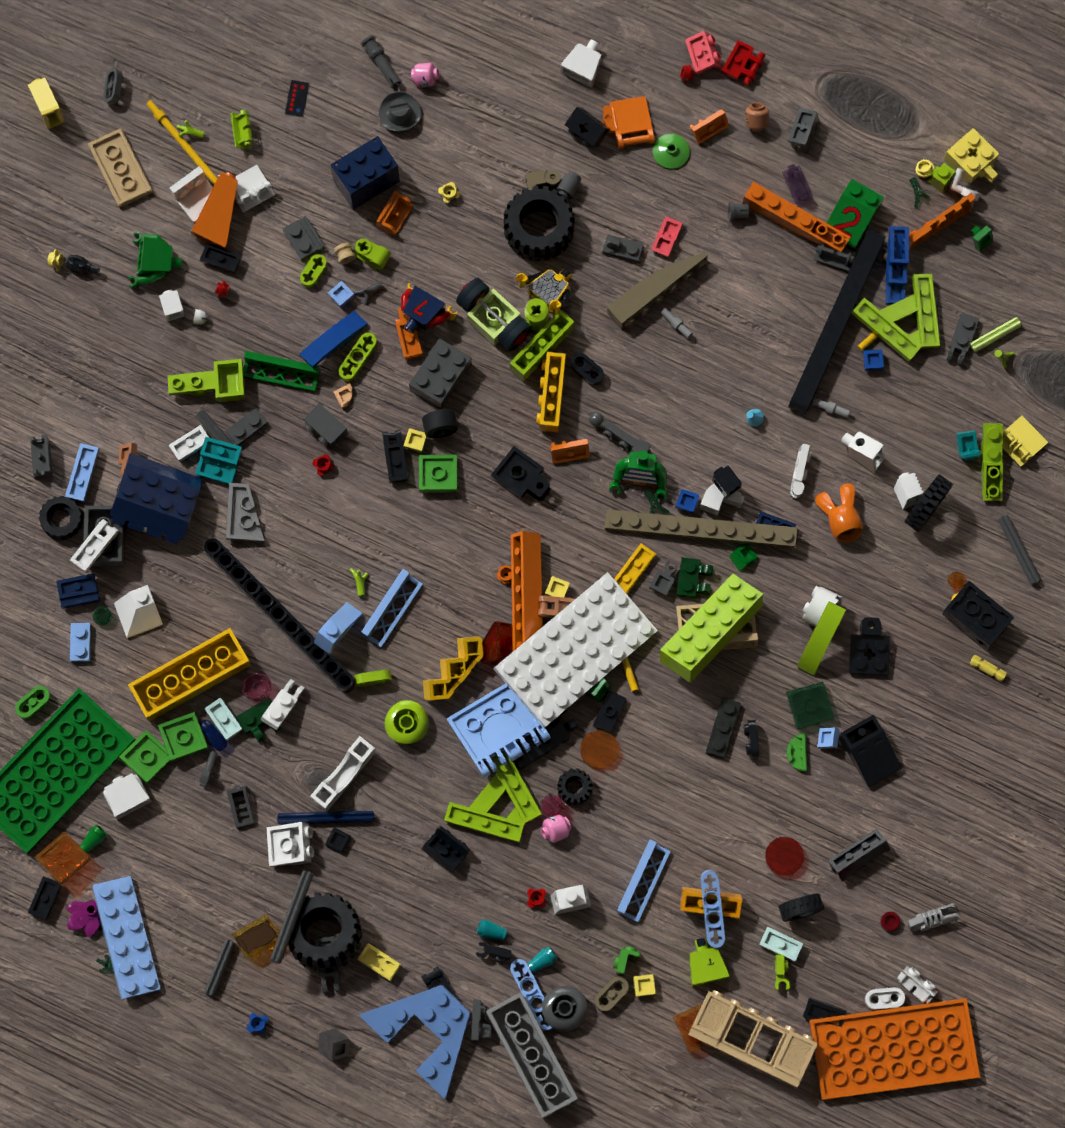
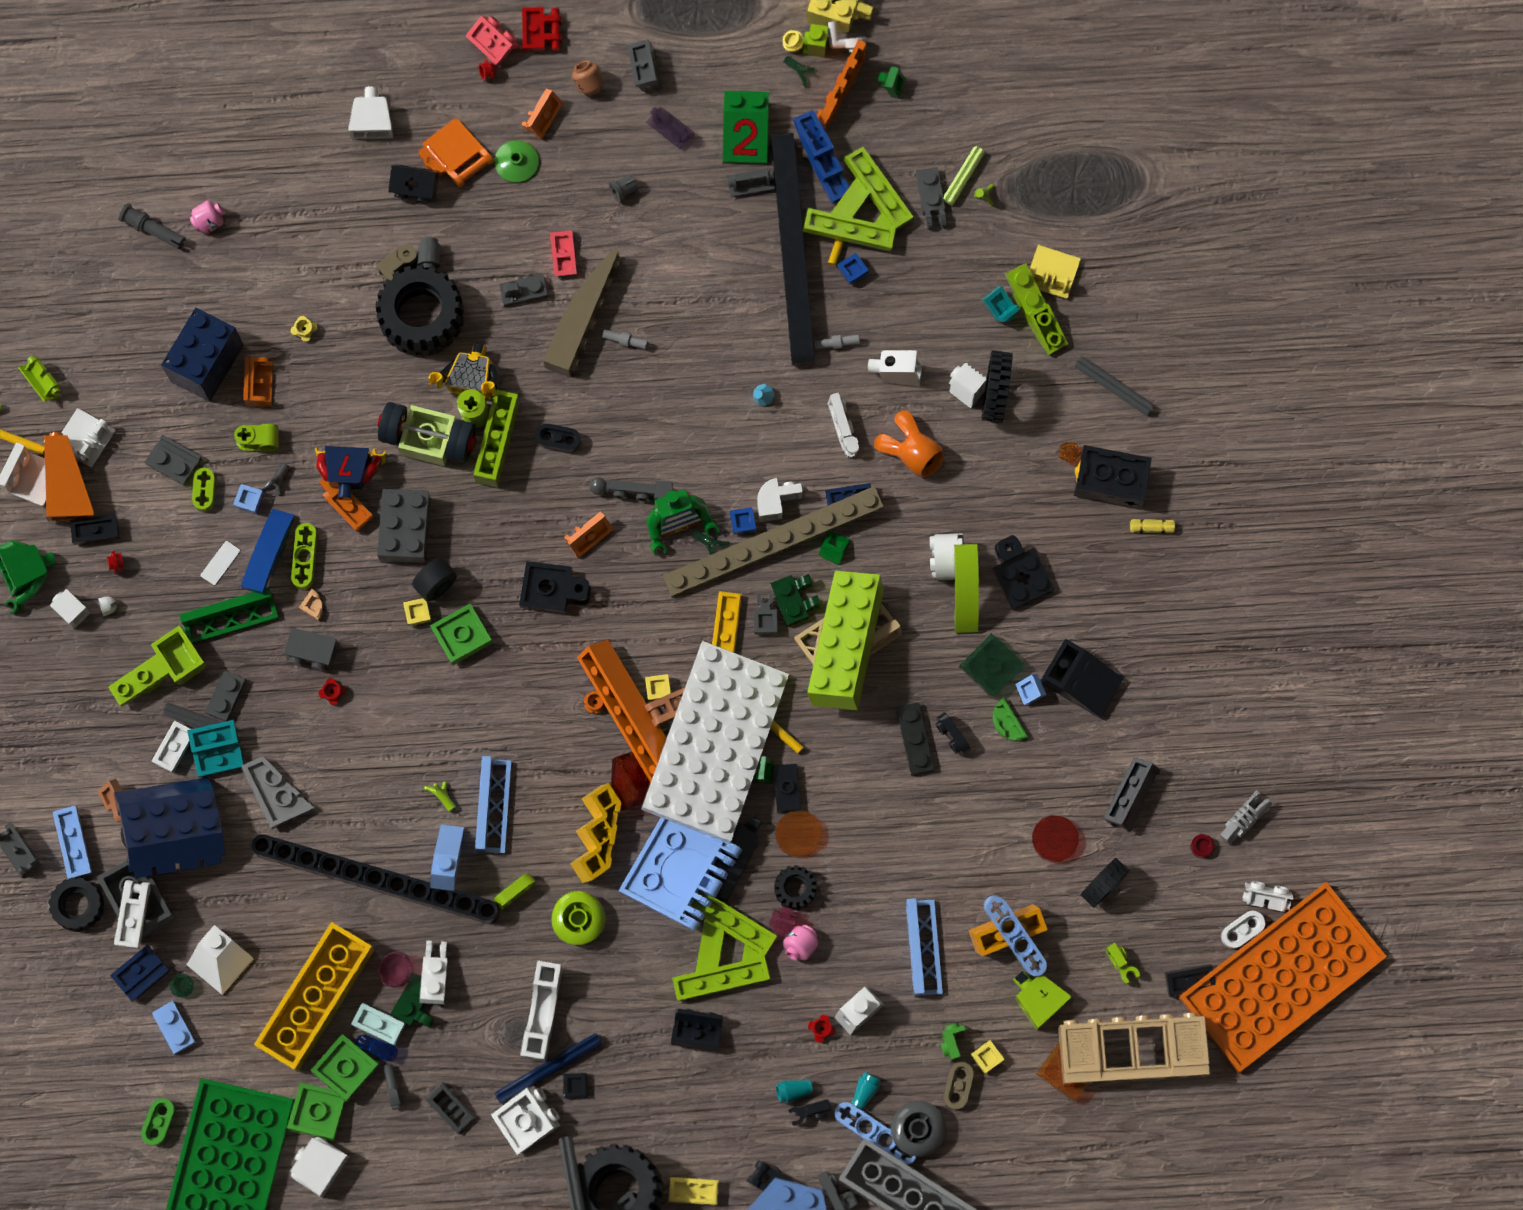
camera: 30 degrees left, 0 degrees up
(296, 98) = (80, 314): black sticker -> none
(296, 329) = (220, 562): none -> white sticker
(344, 253) = (227, 452): tan wheel -> none
(395, 457) = (405, 641): black plate -> none
(399, 111) = (201, 270): dark grey hat -> none
(552, 392) = (537, 485): yellow brick -> none
(726, 481) = (774, 477): black brick -> none
(781, 944) = (1104, 933): light aqua plate -> none
(794, 218) = (687, 164): orange slope -> none

